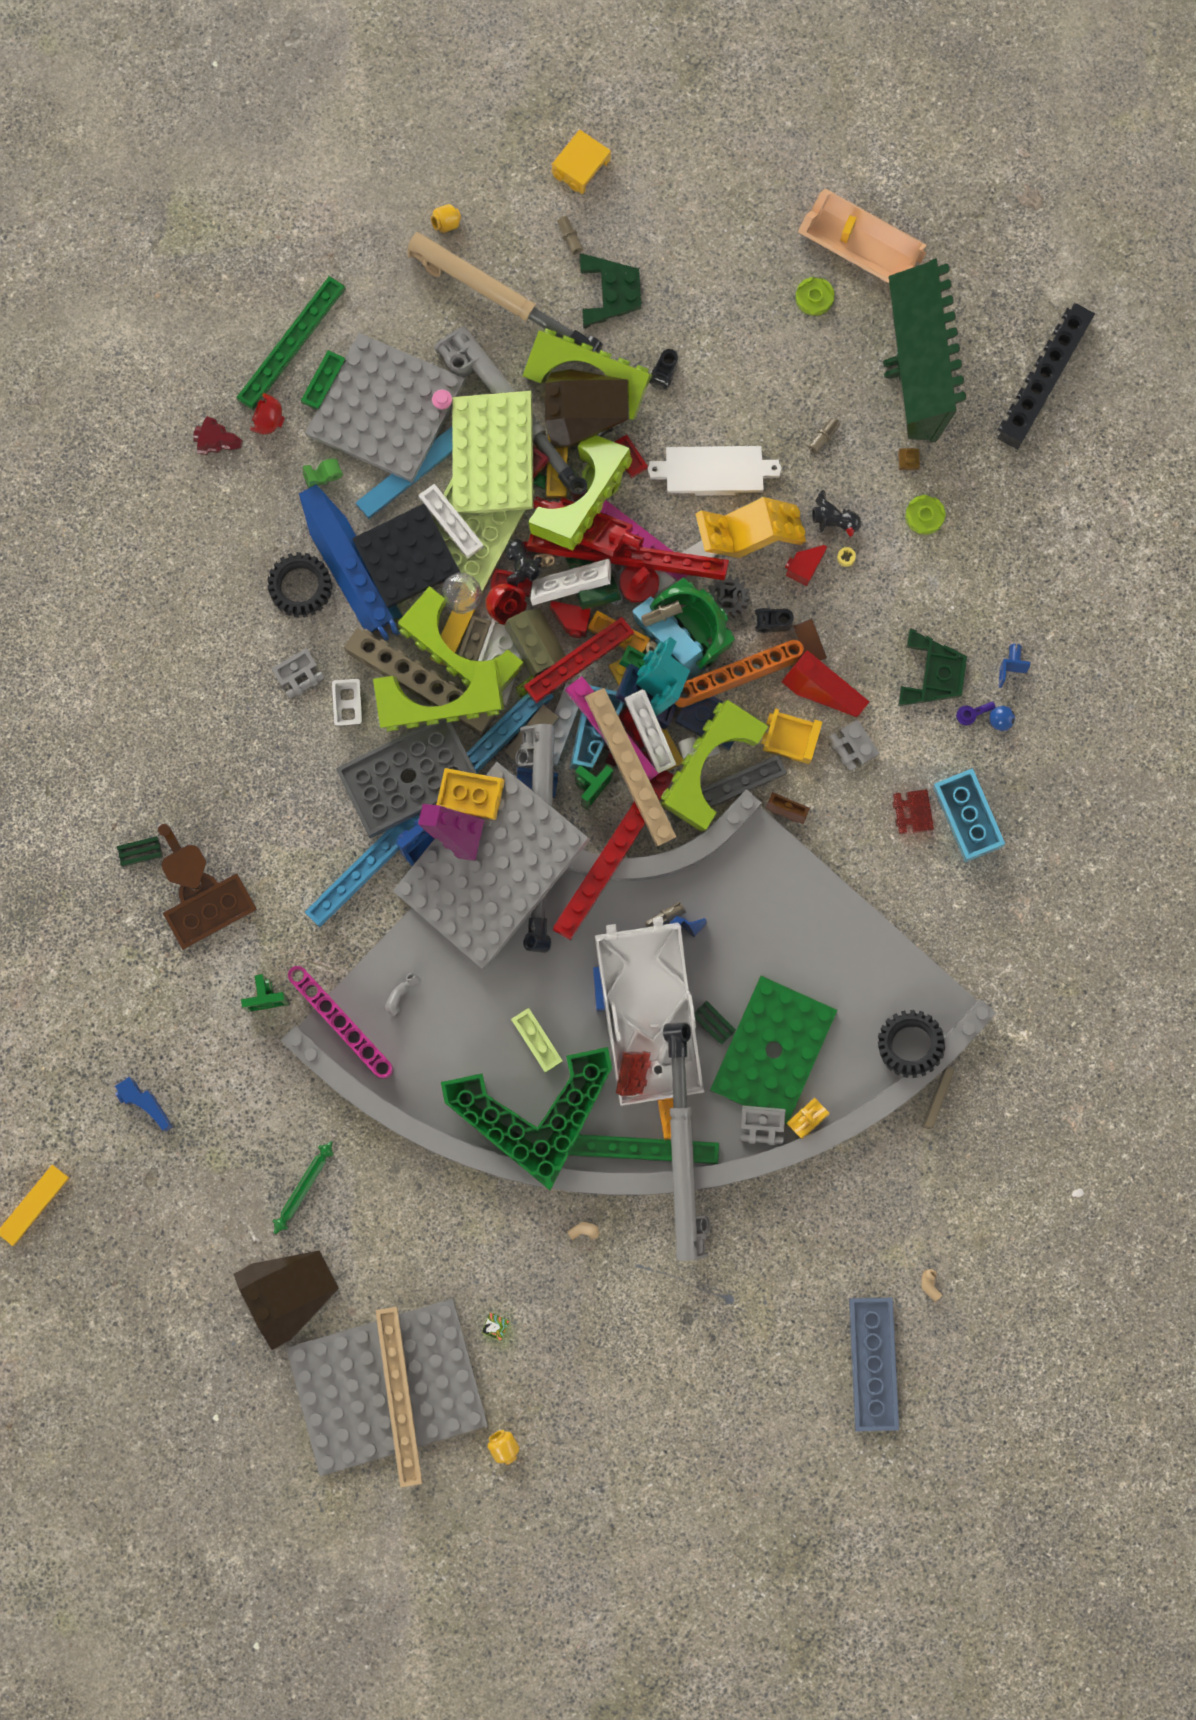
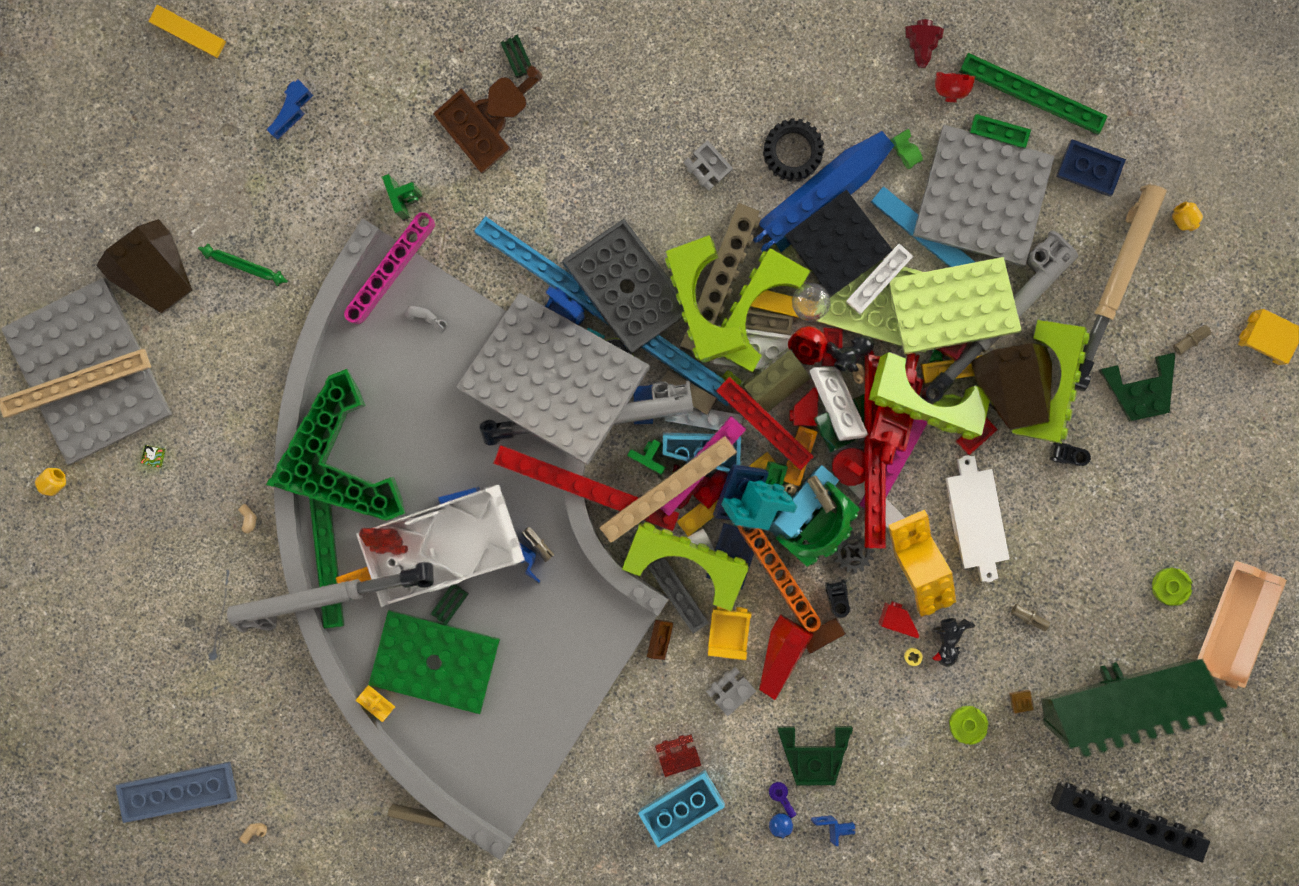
camera: 85 degrees right, 10 degrees up
(339, 705) = (686, 210): white piece -> none
(378, 300) = (1091, 168): none -> dark blue plate
(442, 399) = (999, 247): bright pink plate -> none
(453, 828) = (574, 336): magenta wedge -> none
(471, 793) = (613, 346): yellow tile -> none
(536, 1040) = (405, 447): yellowish green plate -> none
(650, 731) = (706, 502): white plate -> none
(763, 1119) = (363, 663): light grey plate -> none
(848, 228) = (1247, 609): yellow tile -> none
(911, 1020) = (474, 804): black tyre -> none

